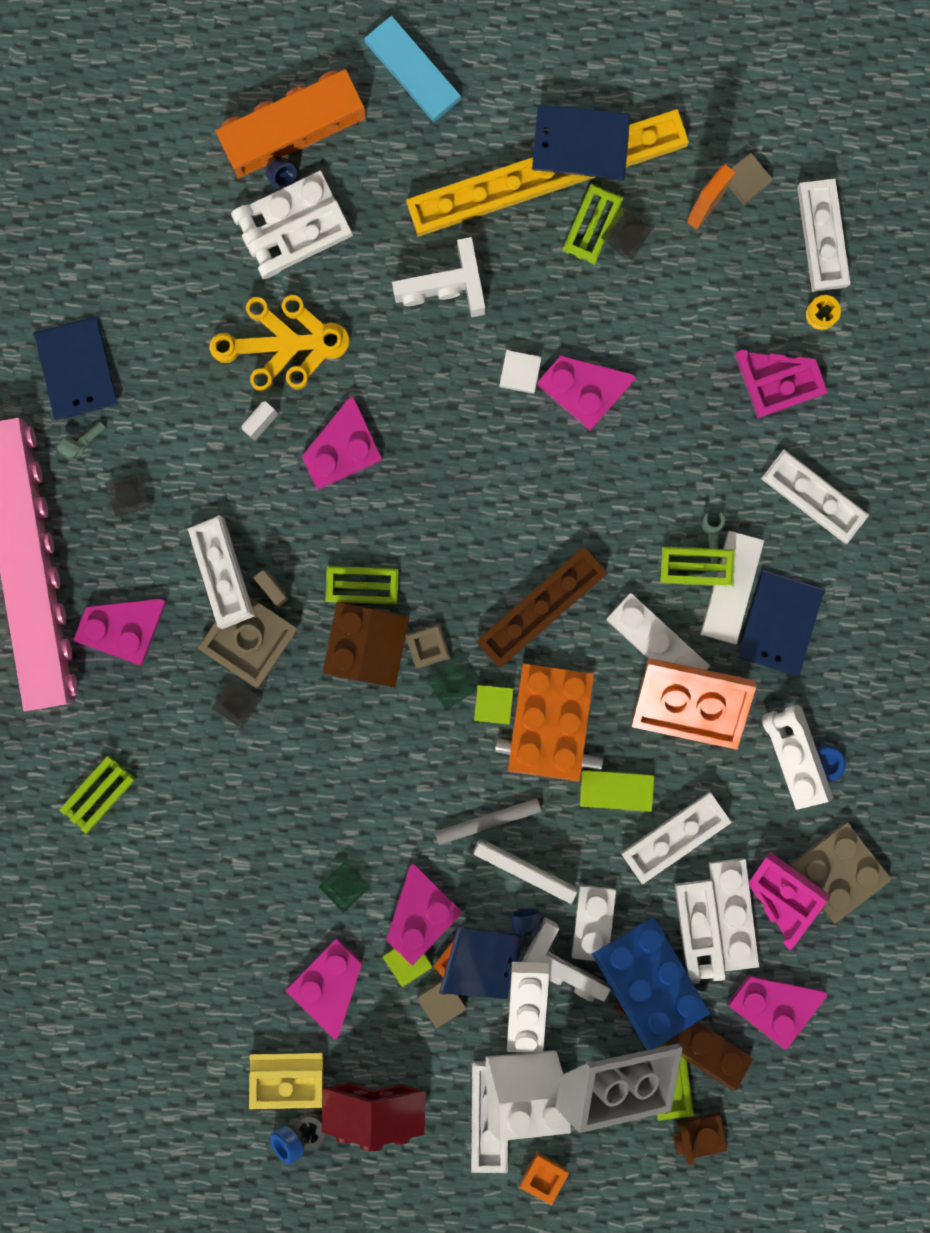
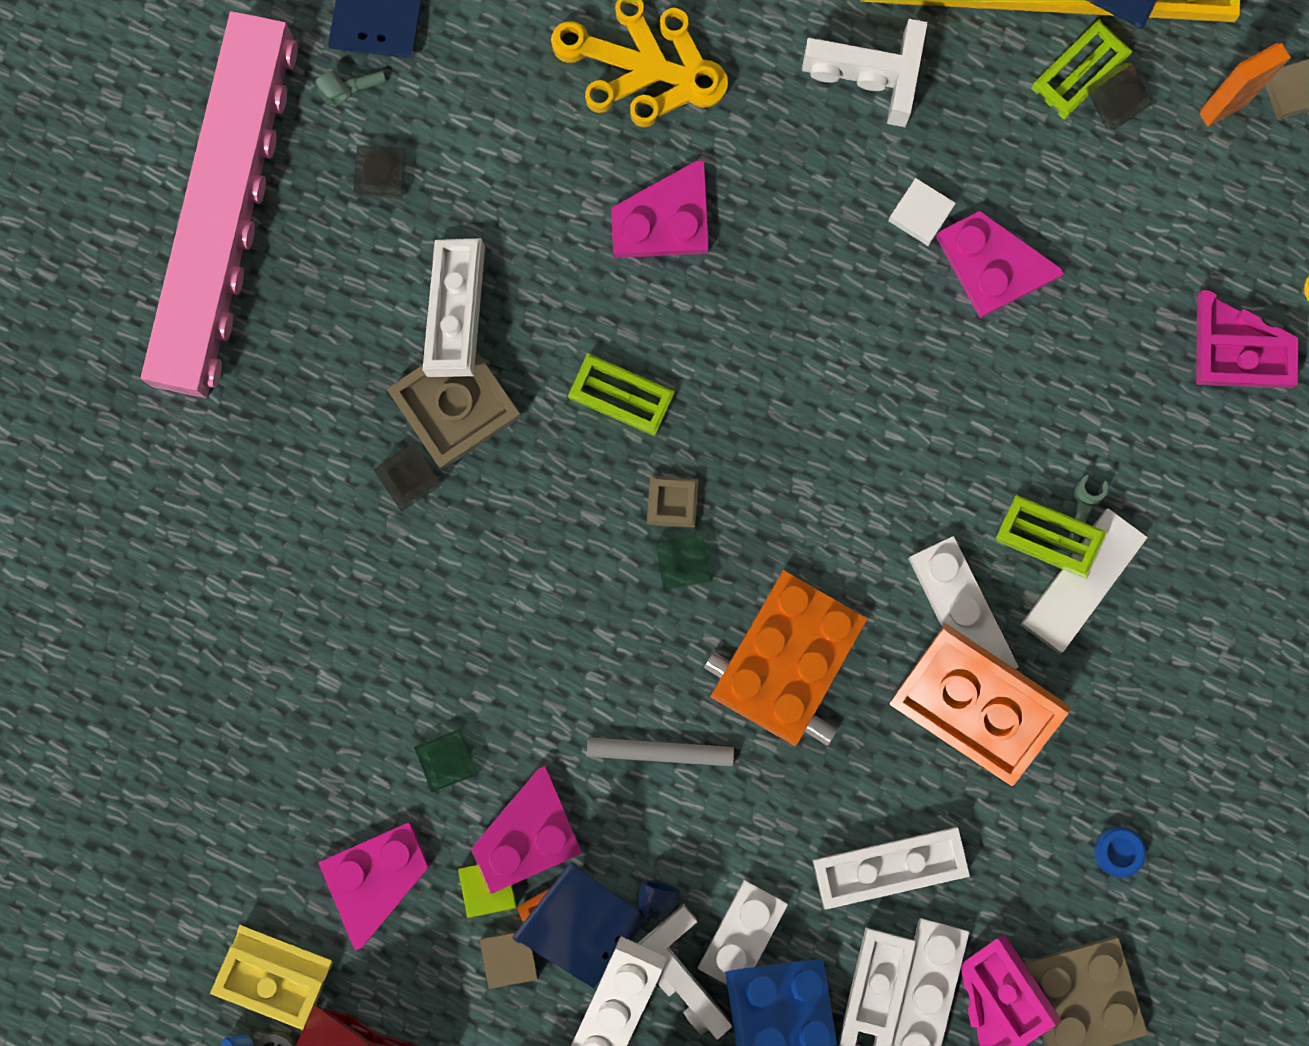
camera: 25 degrees right, 5 degrees down
(76, 817) = (150, 538): lime tile -> none
(121, 628) = (303, 329): dark pink wing -> none
(259, 420) = (577, 143): white tile -> none
(272, 587) = (509, 351): dark tan tile -> none
(365, 645) = (596, 467): reddish brown slope -> none
(493, 704) = (725, 607): lime tile -> none
(525, 870) = (683, 832): white tile -> none
(541, 607) = (834, 509): reddish brown plate -> none
(616, 790) = (838, 778): lime tile -> none
(780, 623) = (1128, 650): dark blue container -> none
(798, 757) = (1086, 827): white plate -> none
(815, 496) = (1232, 509): white tile -> none

